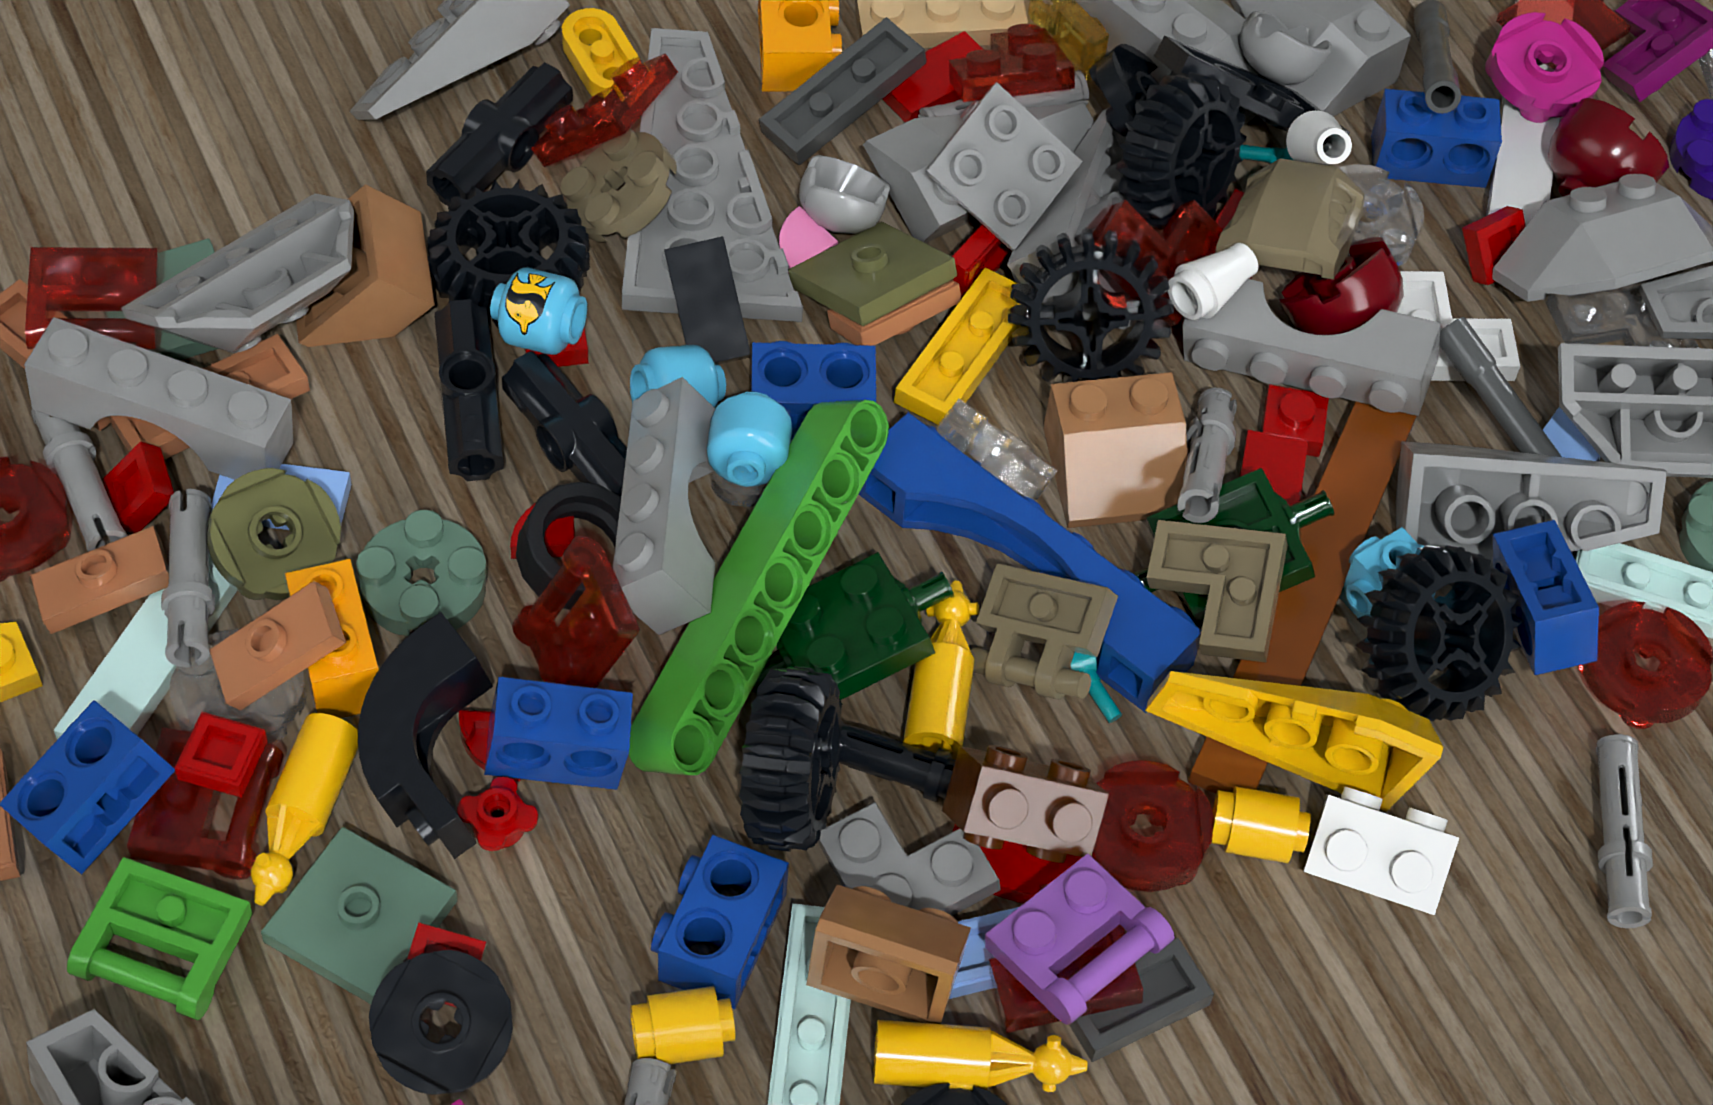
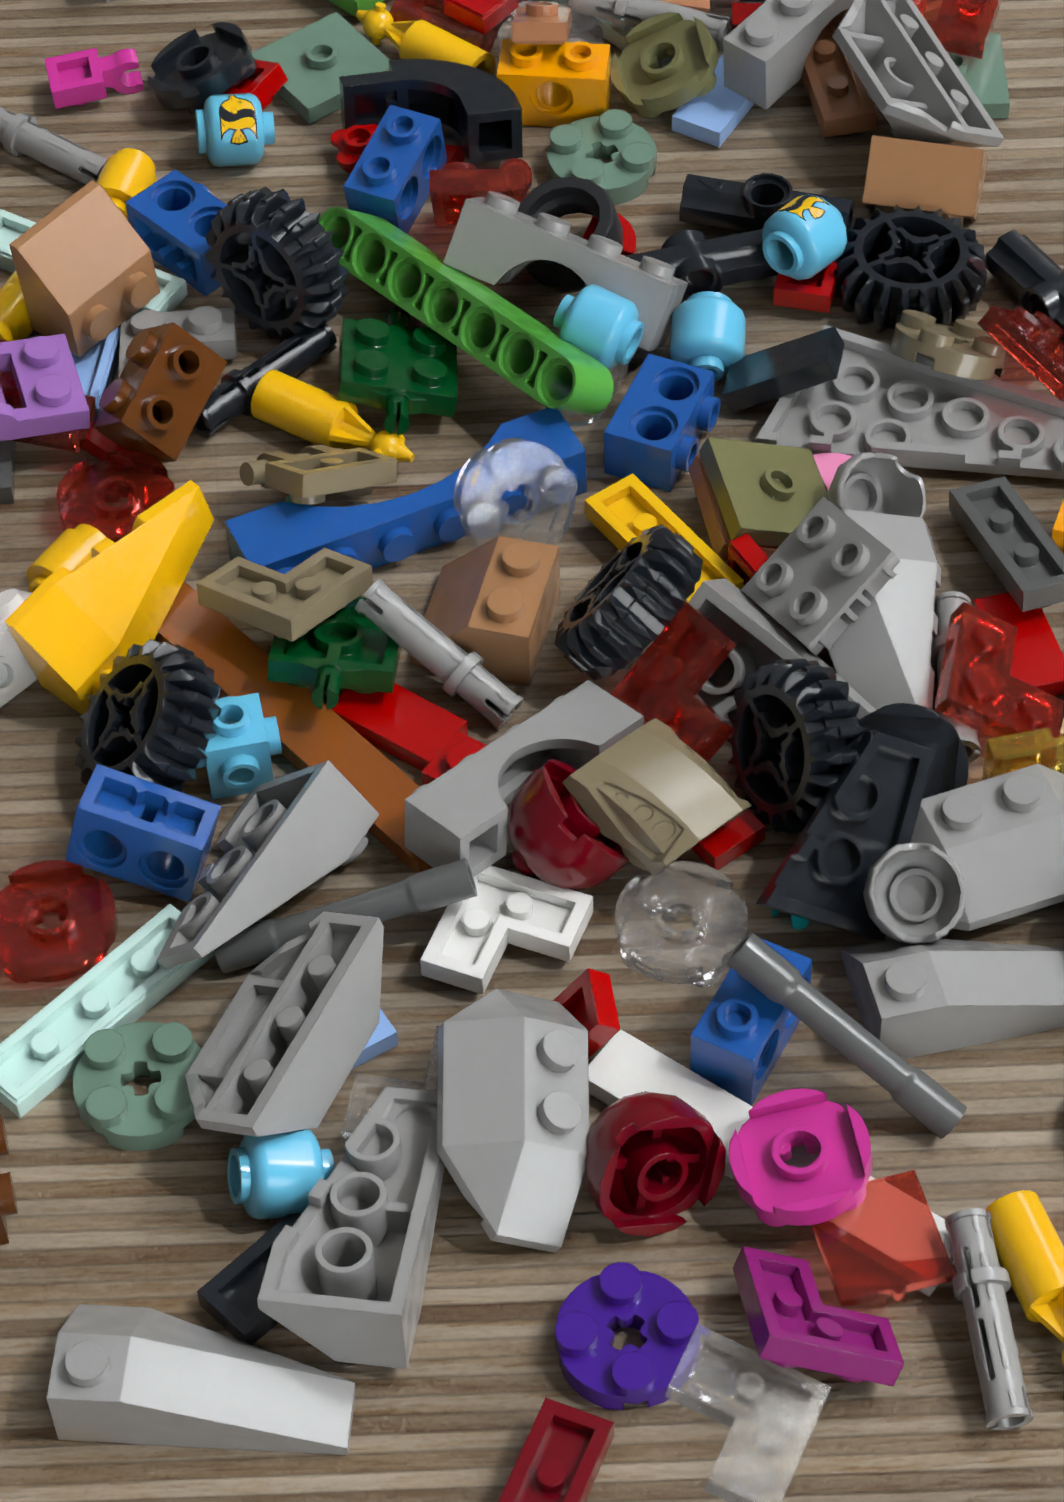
camera: 120 degrees right, 5 degrees down
(538, 942) = (233, 129): none -> medium azure head
(1209, 282) = (607, 685): white cone -> none
(1307, 137) = (746, 847): white cone -> none

